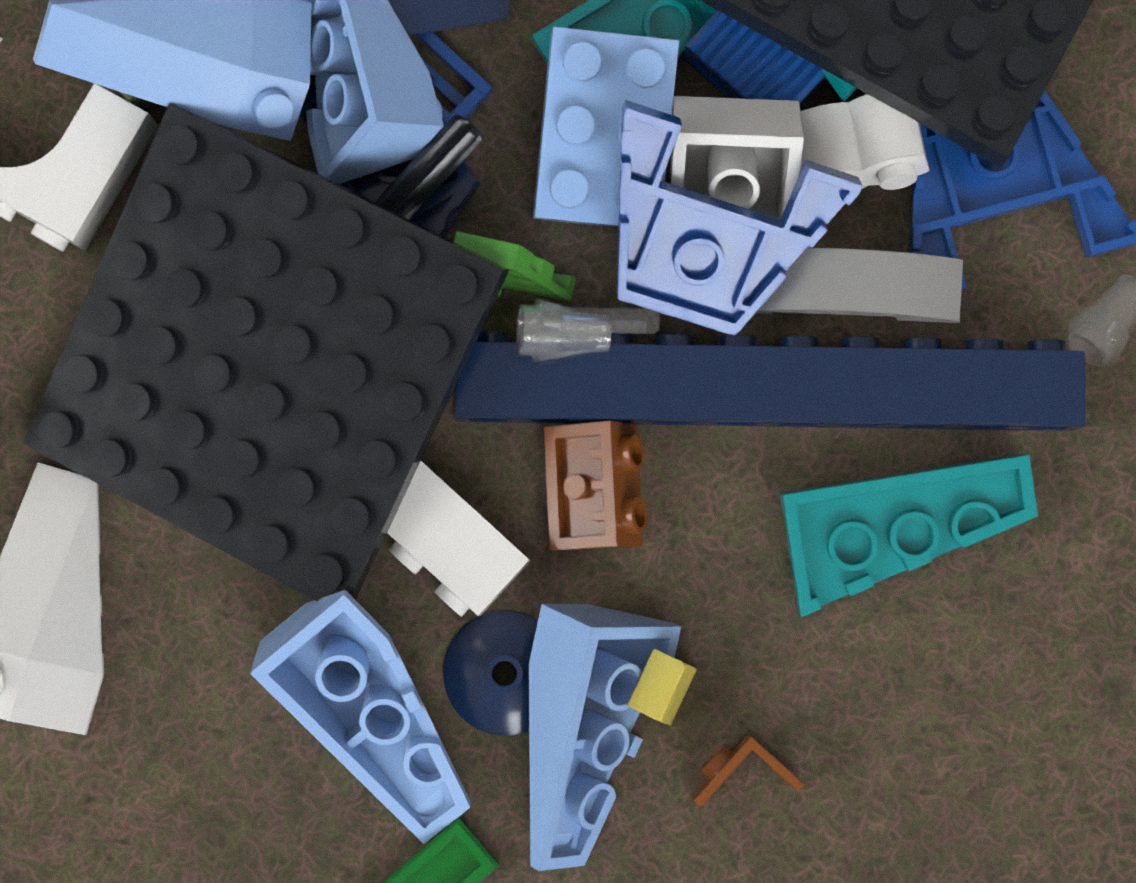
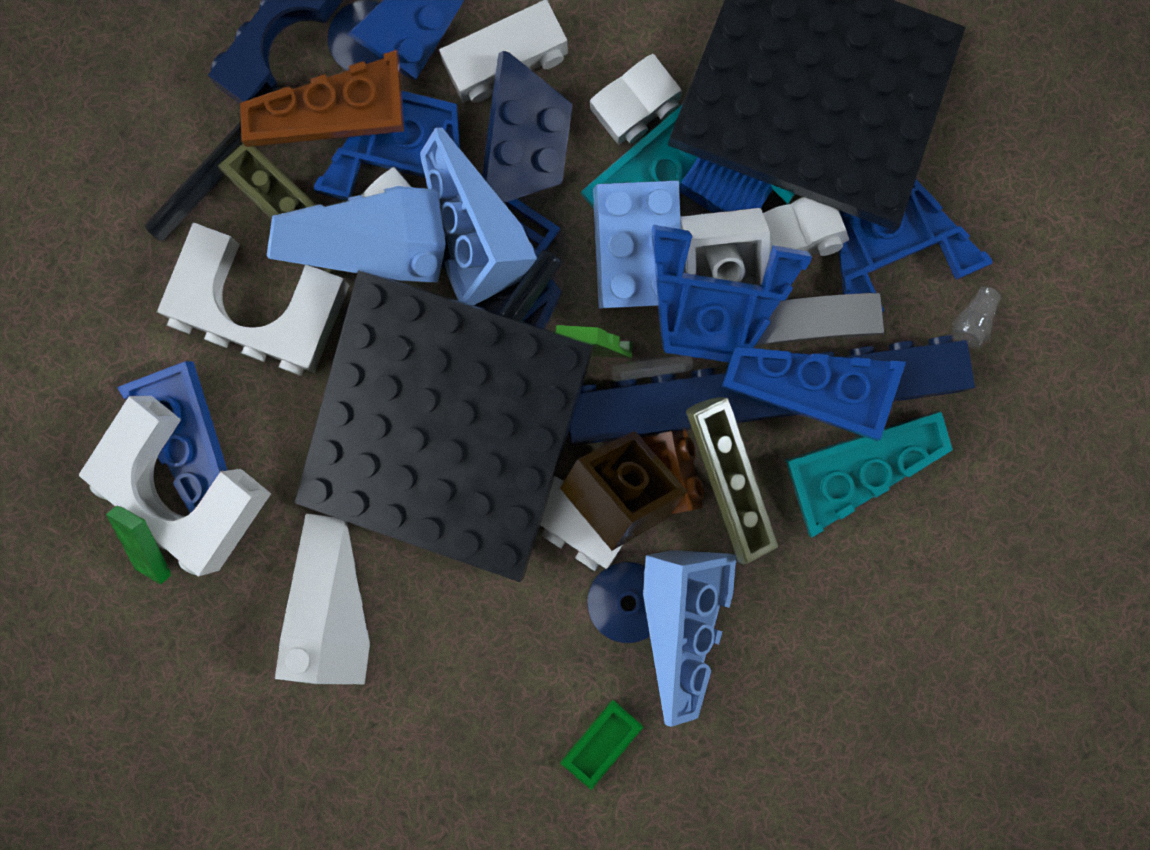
camera: 10 degrees left, 0 degrees up
(357, 699) = (537, 634): light blue wedge -> none
(519, 498) = (622, 489): none -> dark brown brick
(560, 331) = (629, 379): clear cone -> none
(661, 687) = (730, 596): light yellow slope -> none
(690, 508) = (732, 478): none -> olive brick
(726, 760) = (778, 638): dark orange bracket -> none
(857, 392) = (829, 389): none -> blue wing

